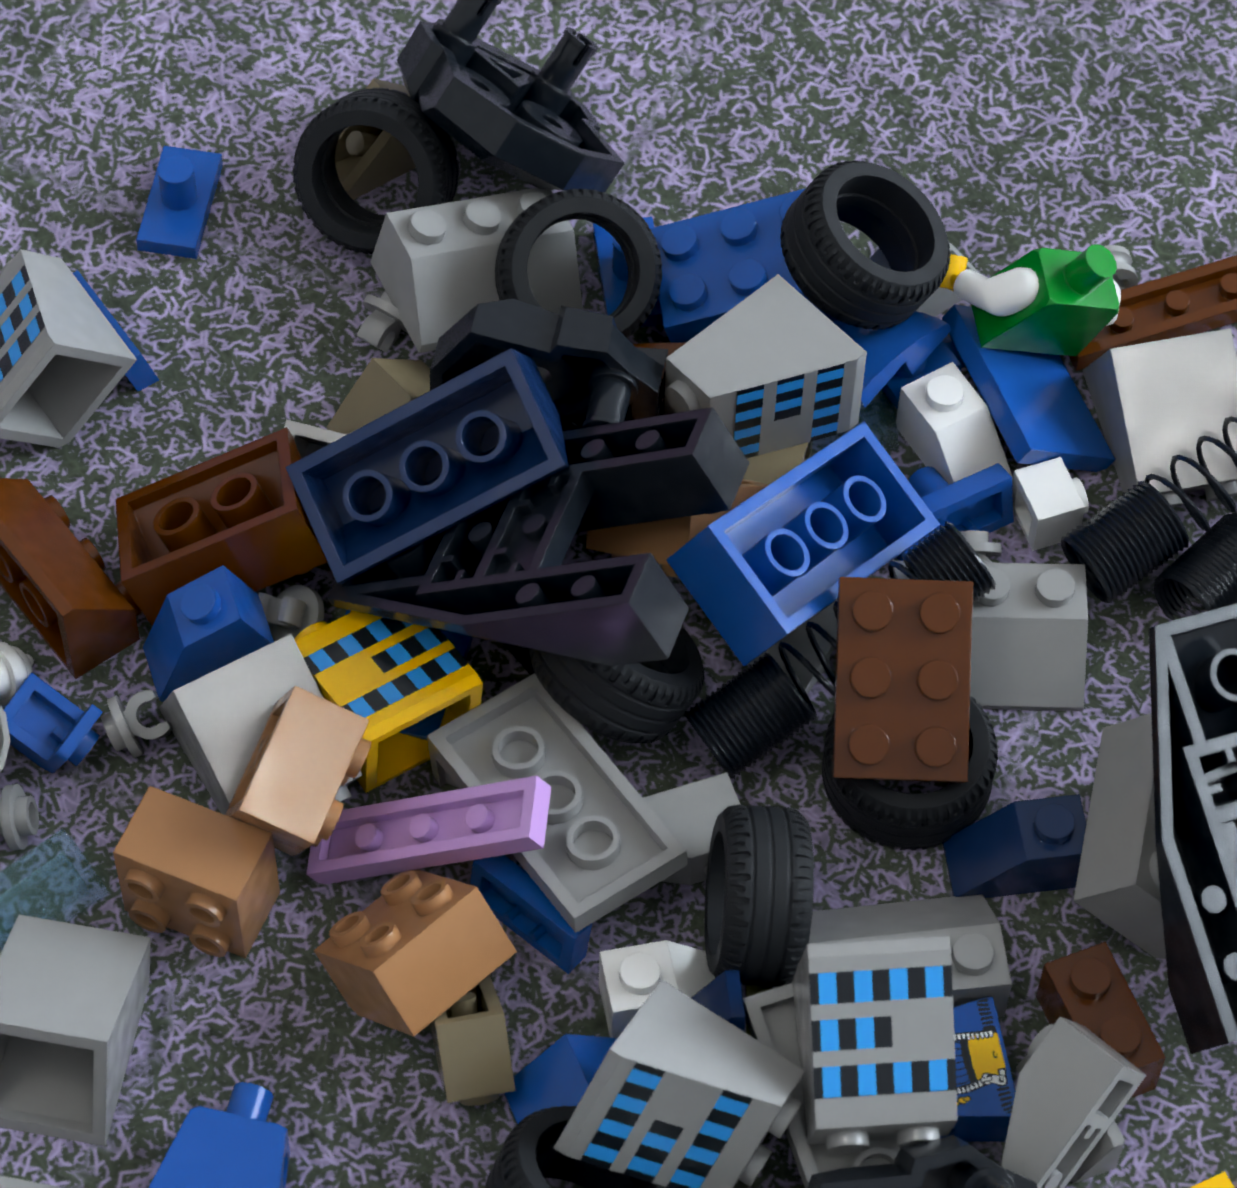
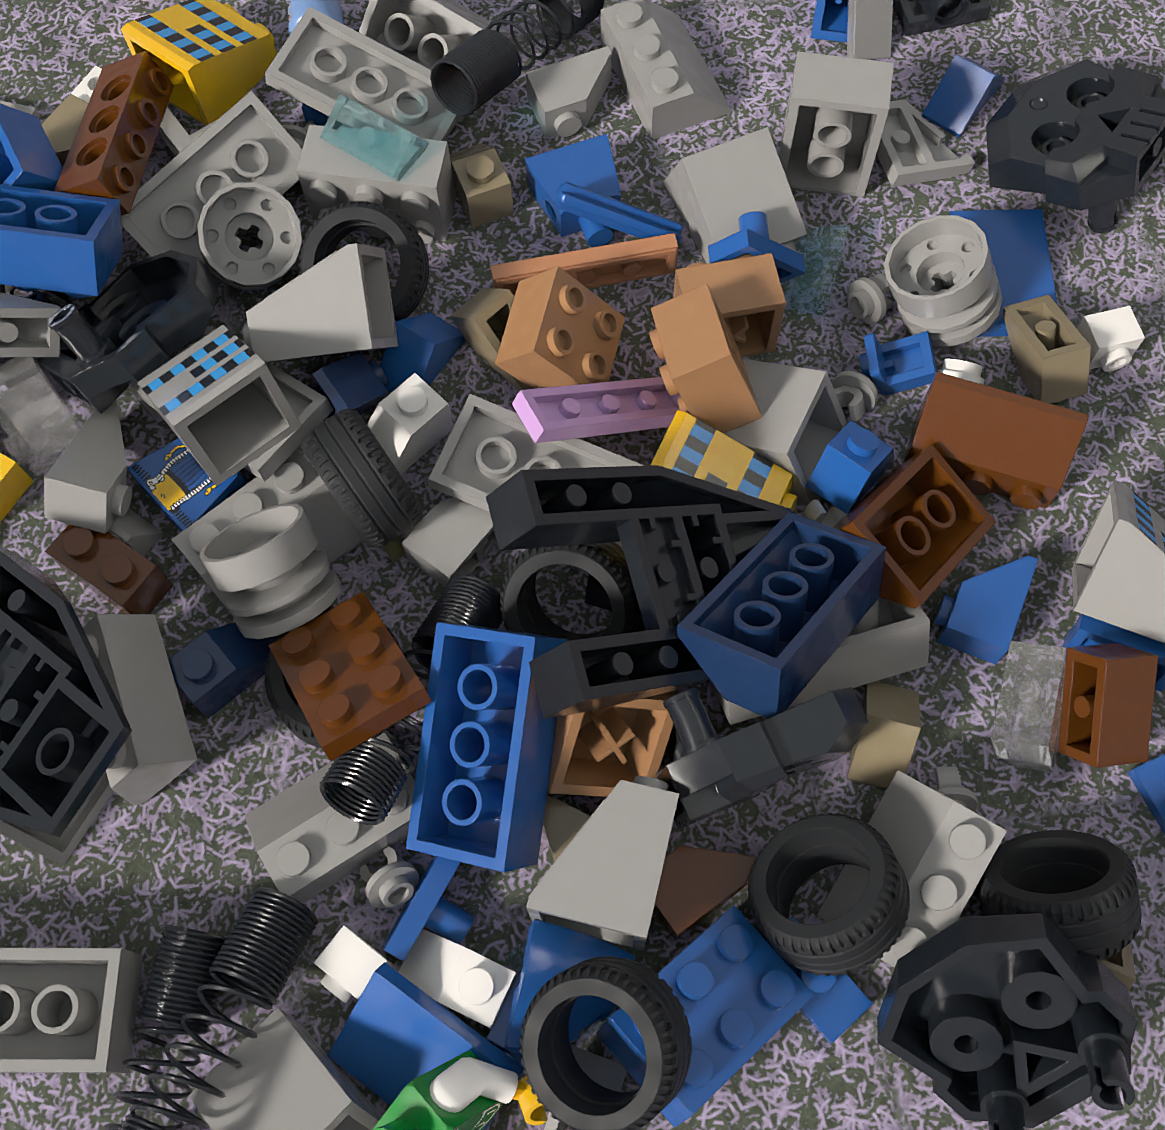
camera: 150 degrees right, 10 degrees up
(113, 898) = (755, 240): none -> blue tile
(181, 281) = (1107, 704): none -> reddish brown brick
(187, 433) = (985, 610): none -> blue slope
(218, 1082) = (613, 212): none -> blue axle
(245, 329) = (1030, 706): none -> clear brick
(305, 1060) = (598, 264): none -> nougat tile
(925, 890) = (271, 571): none -> light grey wheel

